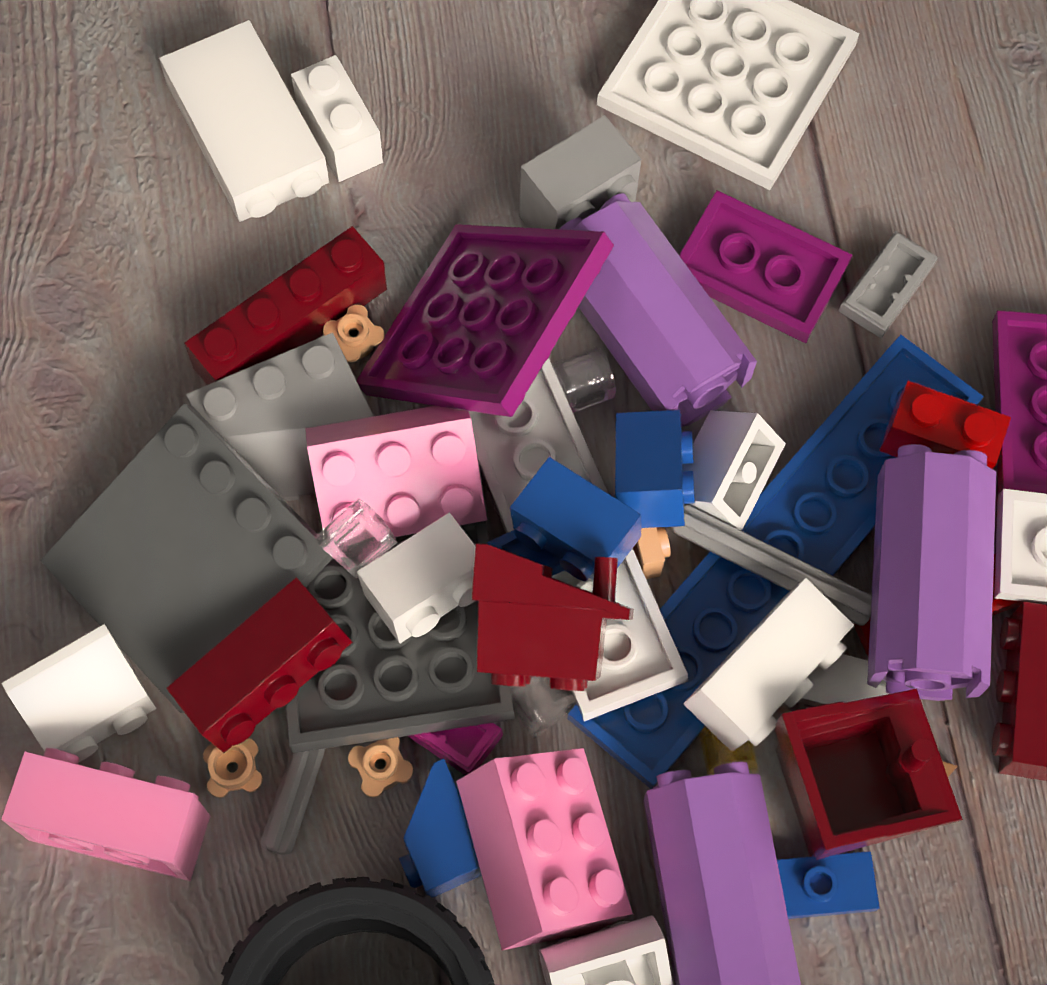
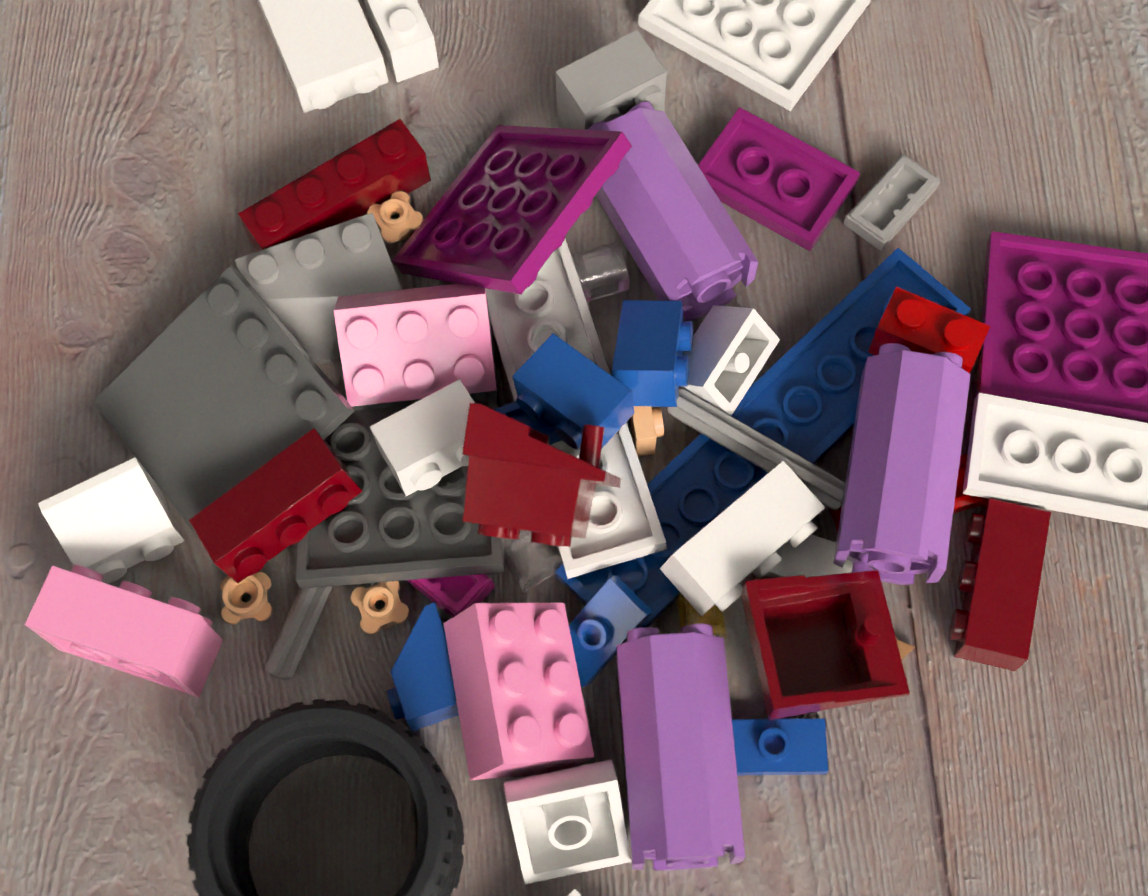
camera: 10 degrees right, 0 degrees up
(356, 537) = (372, 395): clear brick -> none
(630, 770) = (604, 626): none -> blue plate

